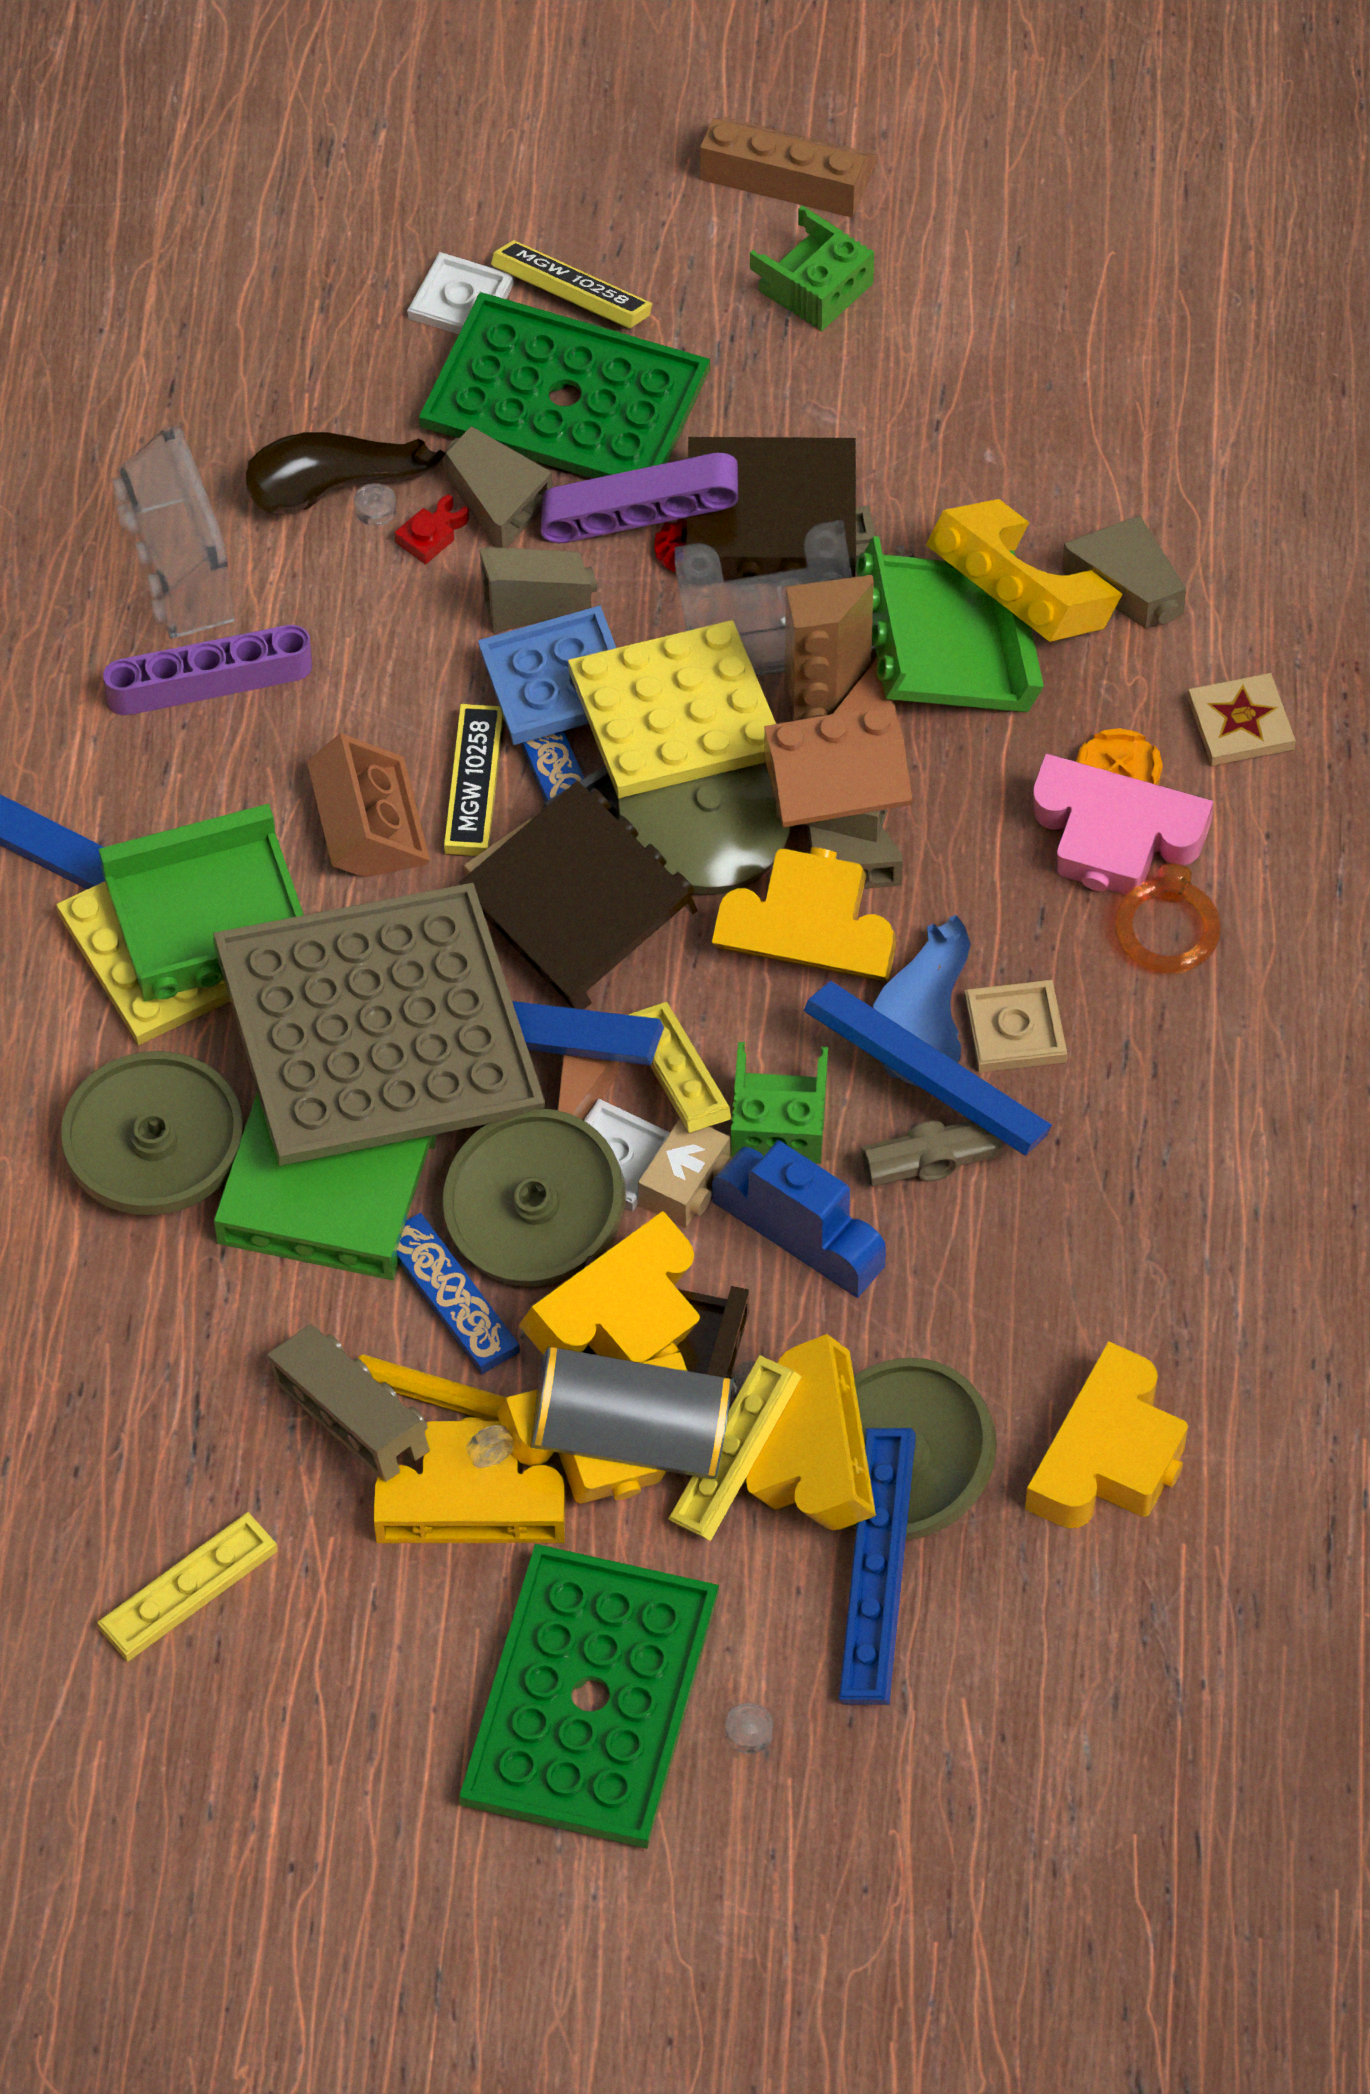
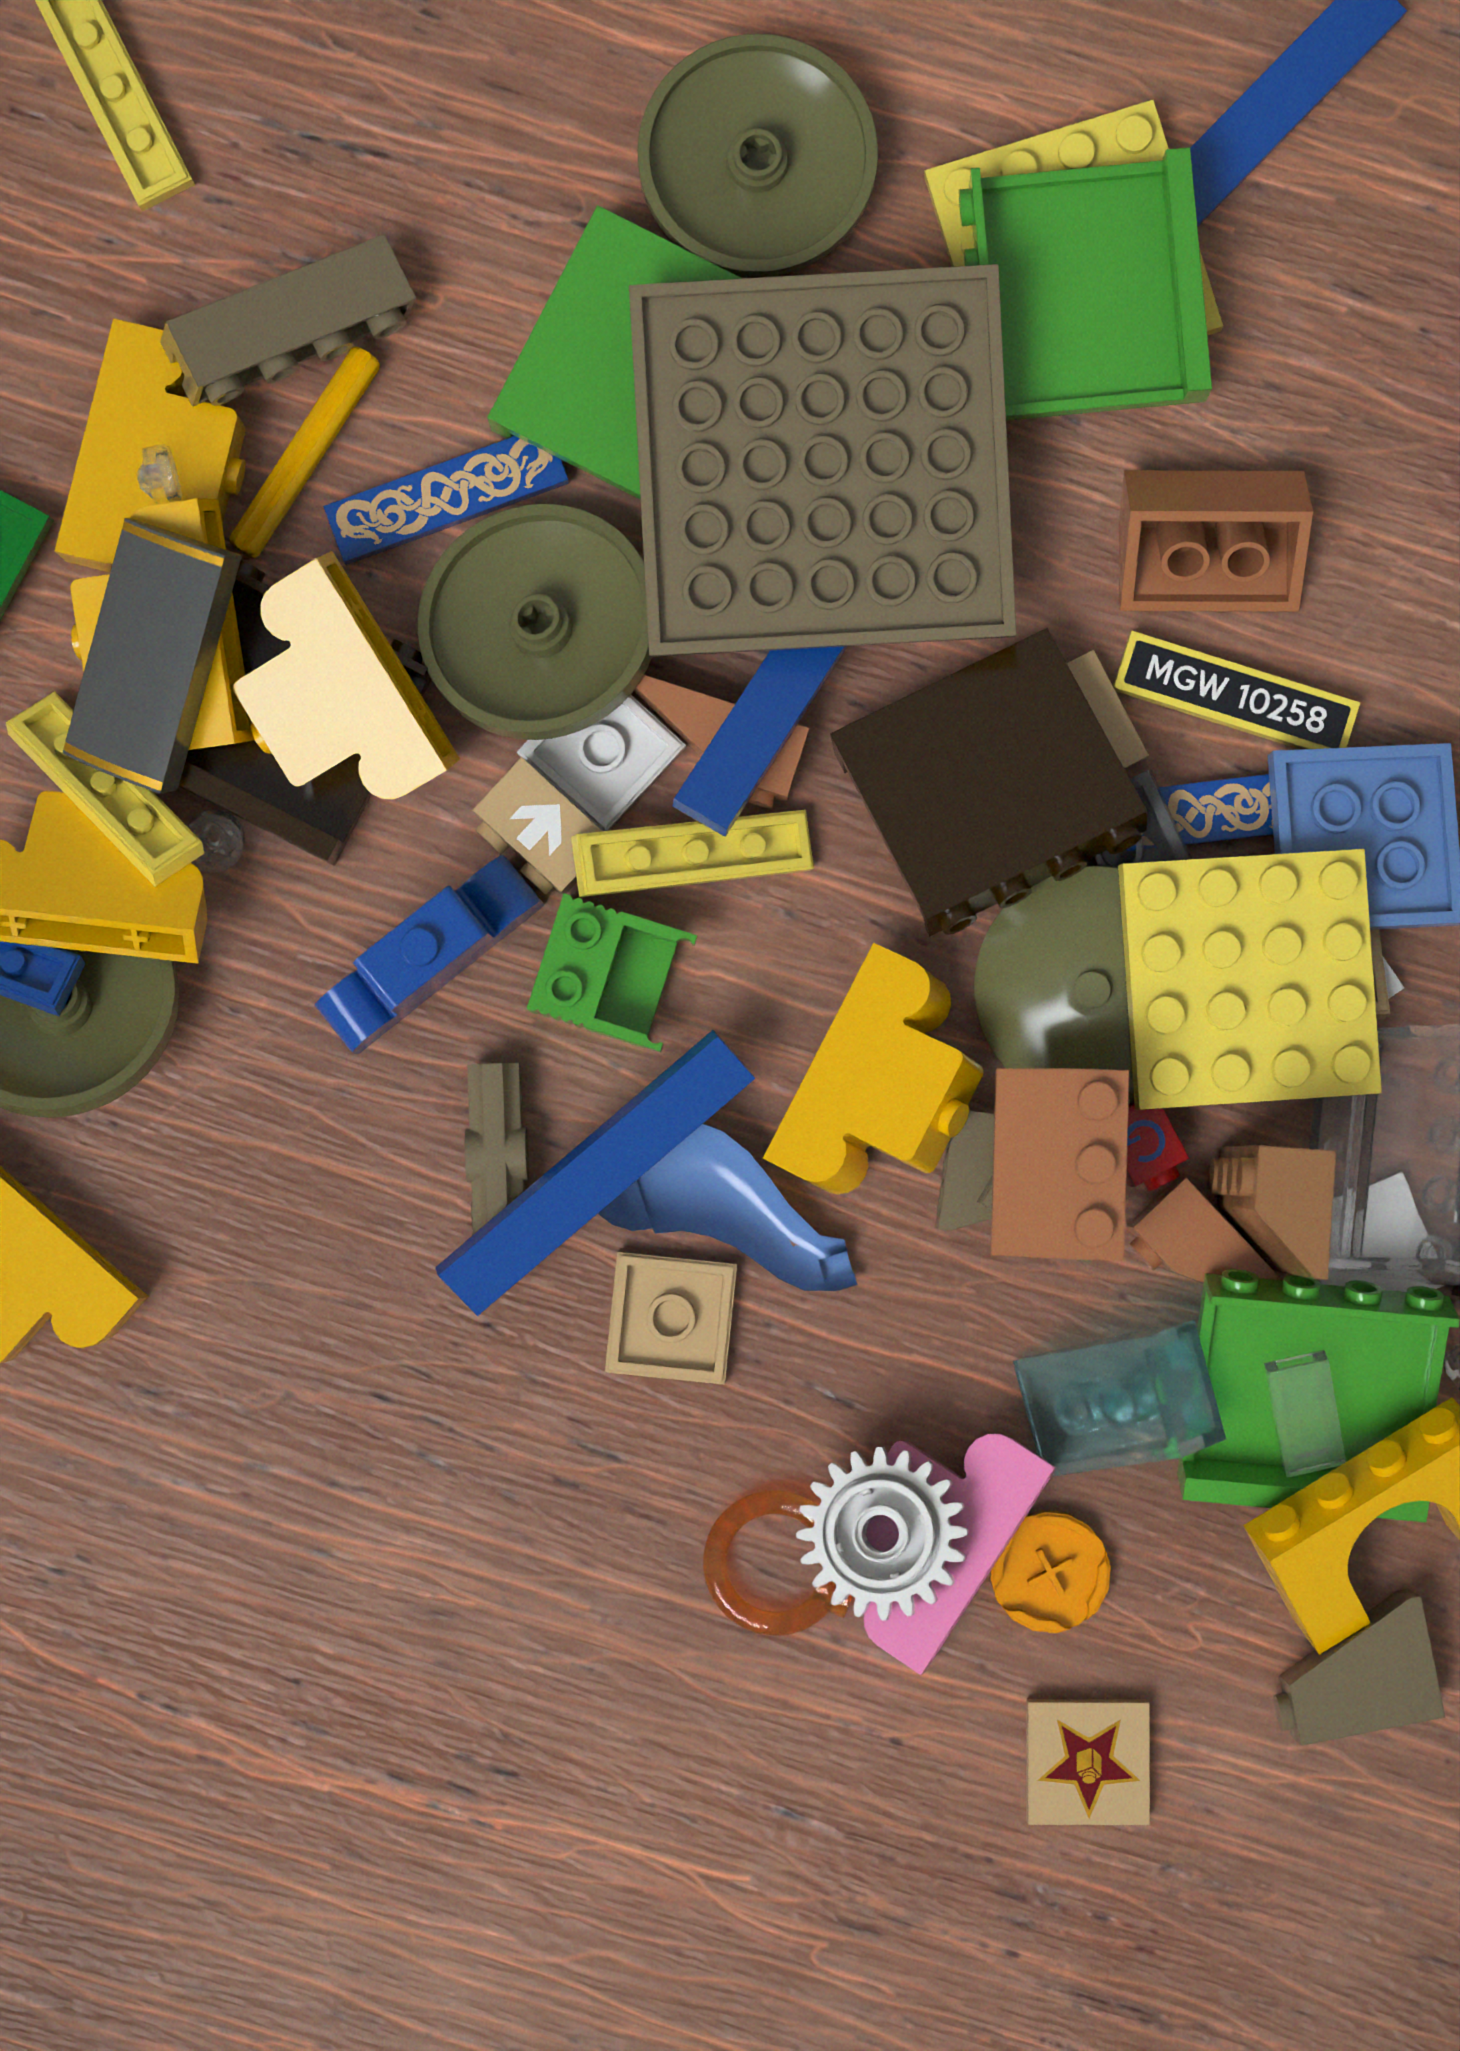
camera: 100 degrees right, 30 degrees up
(962, 628) = (1305, 1413): none -> clear tile
(987, 735) = (1121, 1400): none -> clear light blue slope
(1119, 863) = (843, 1540): none -> white gear

